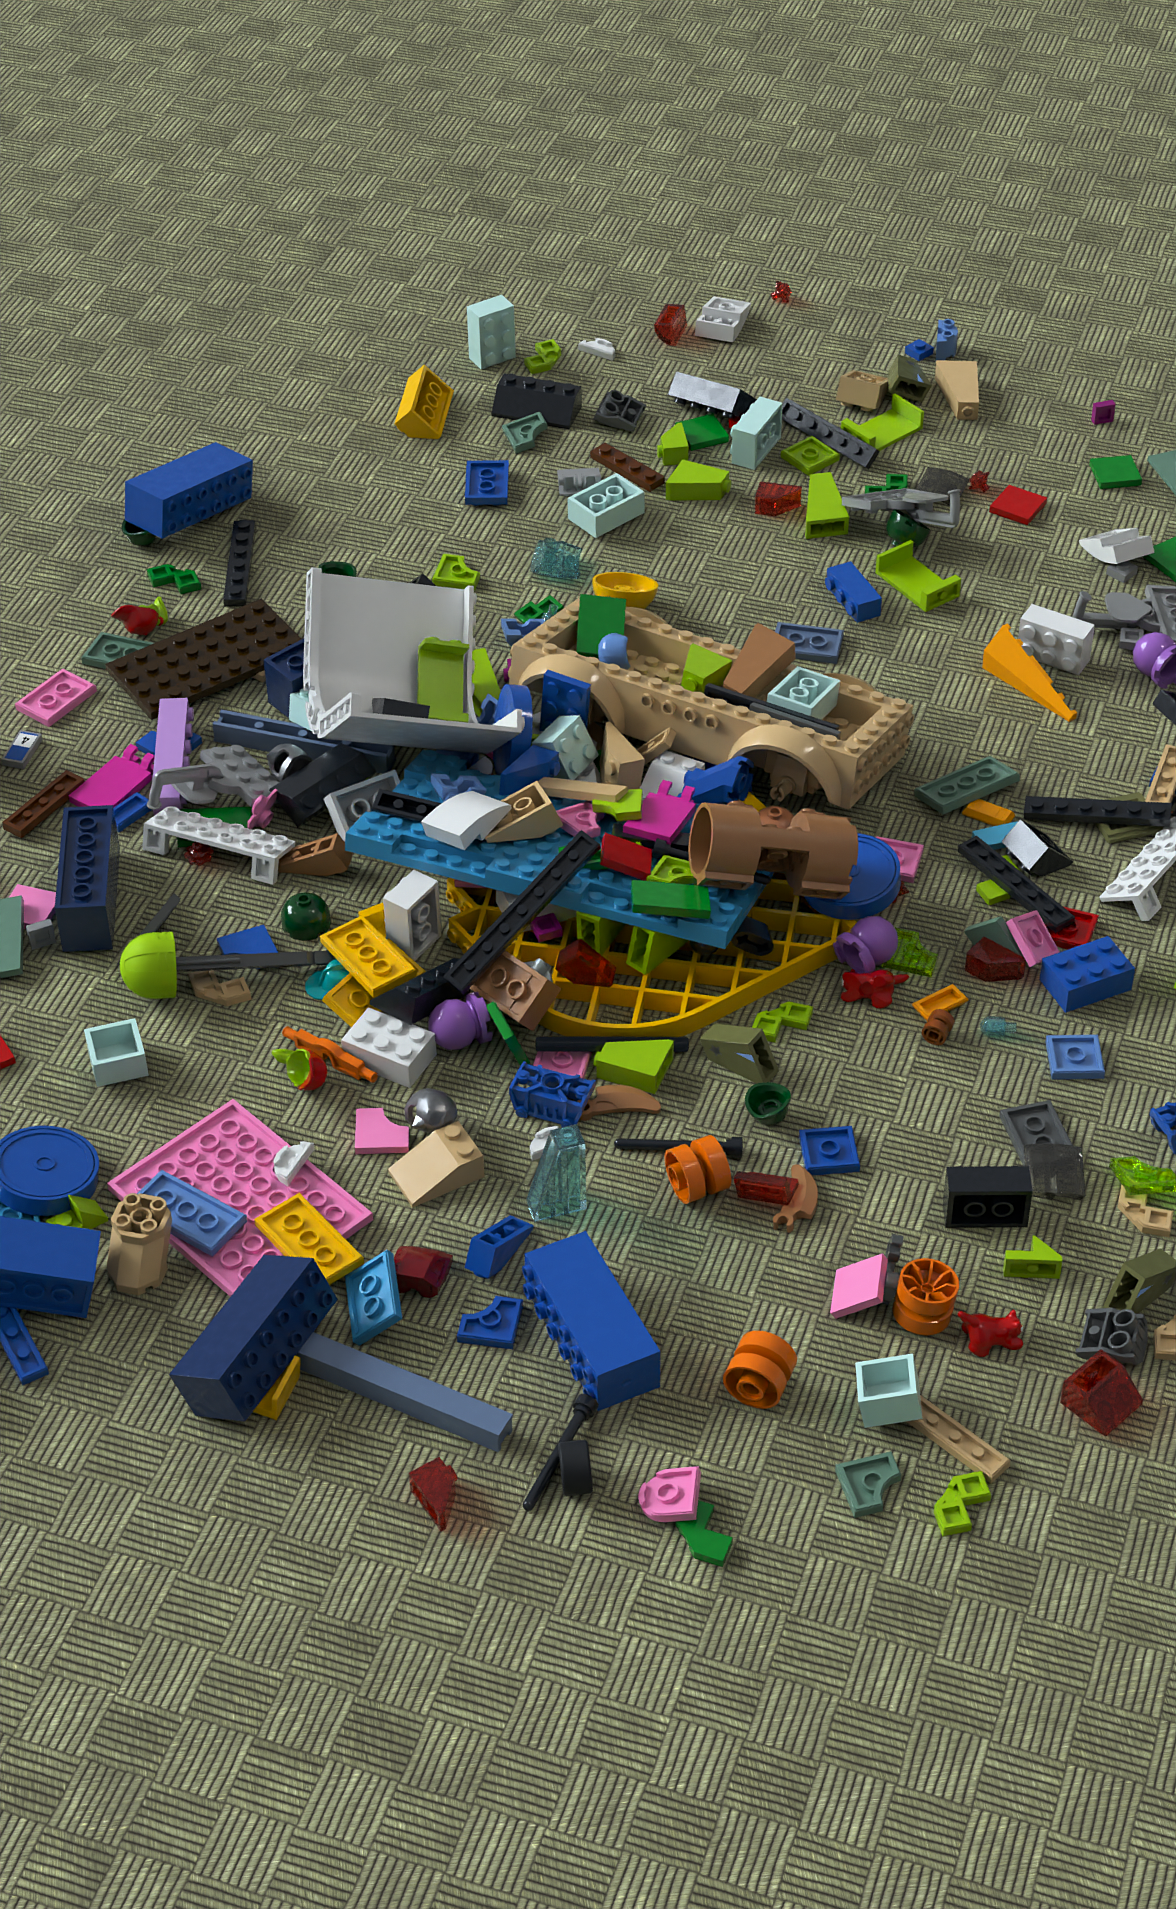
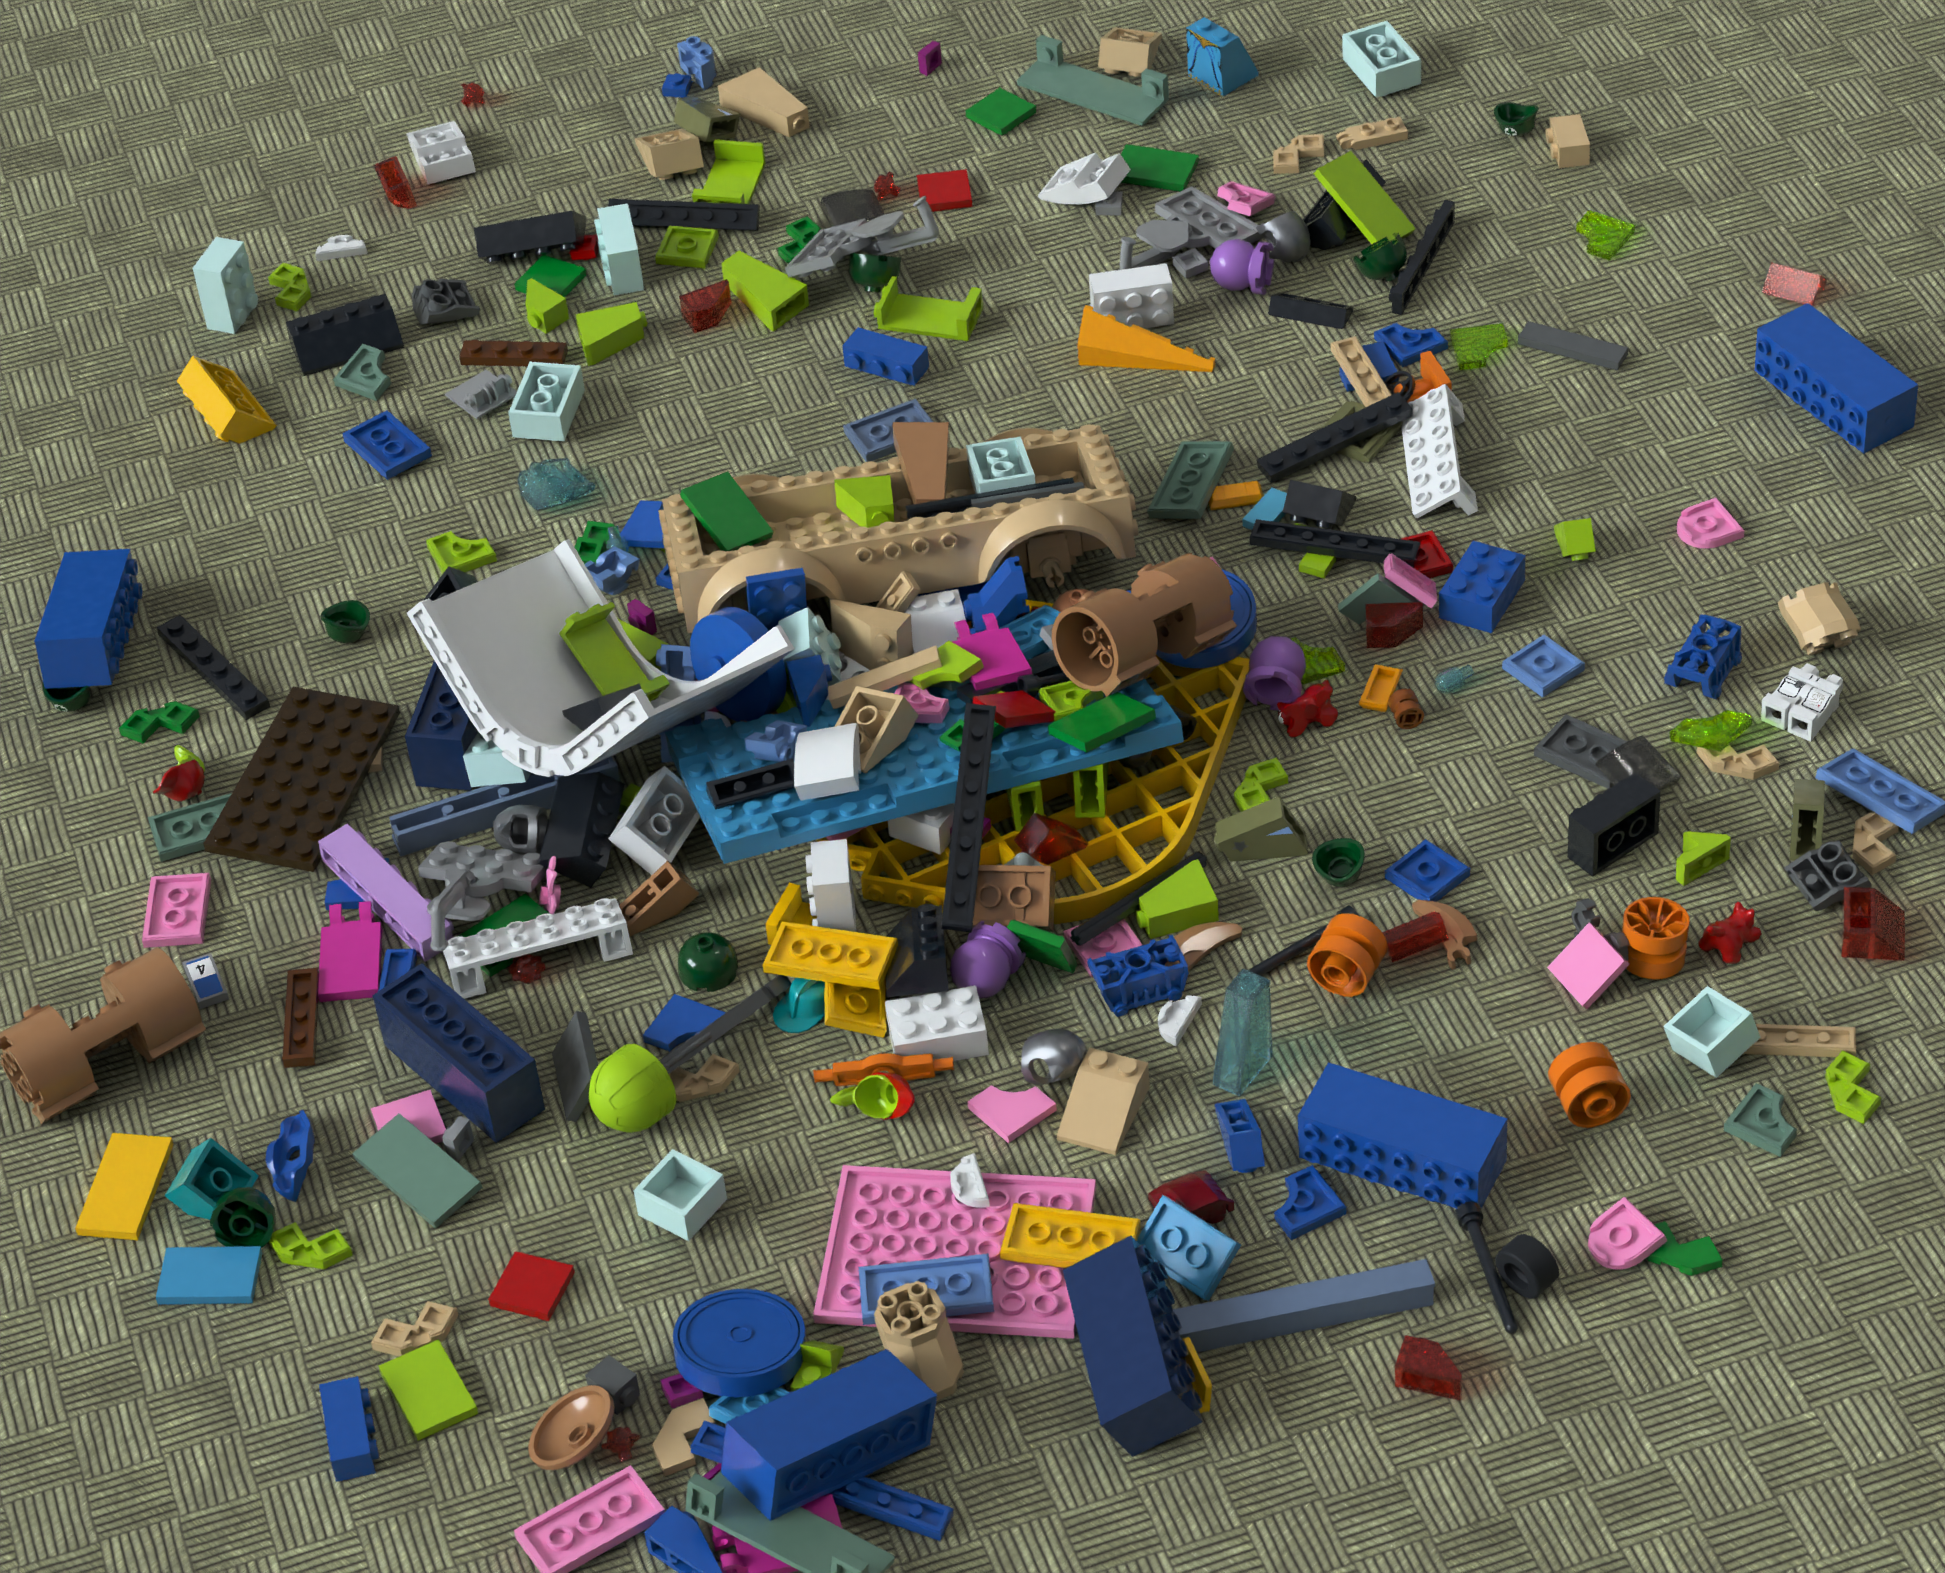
camera: 35 degrees left, 0 degrees up
(613, 650) = (774, 524): medium blue hair -> none
(635, 588) = (668, 472): yellow piece -> none

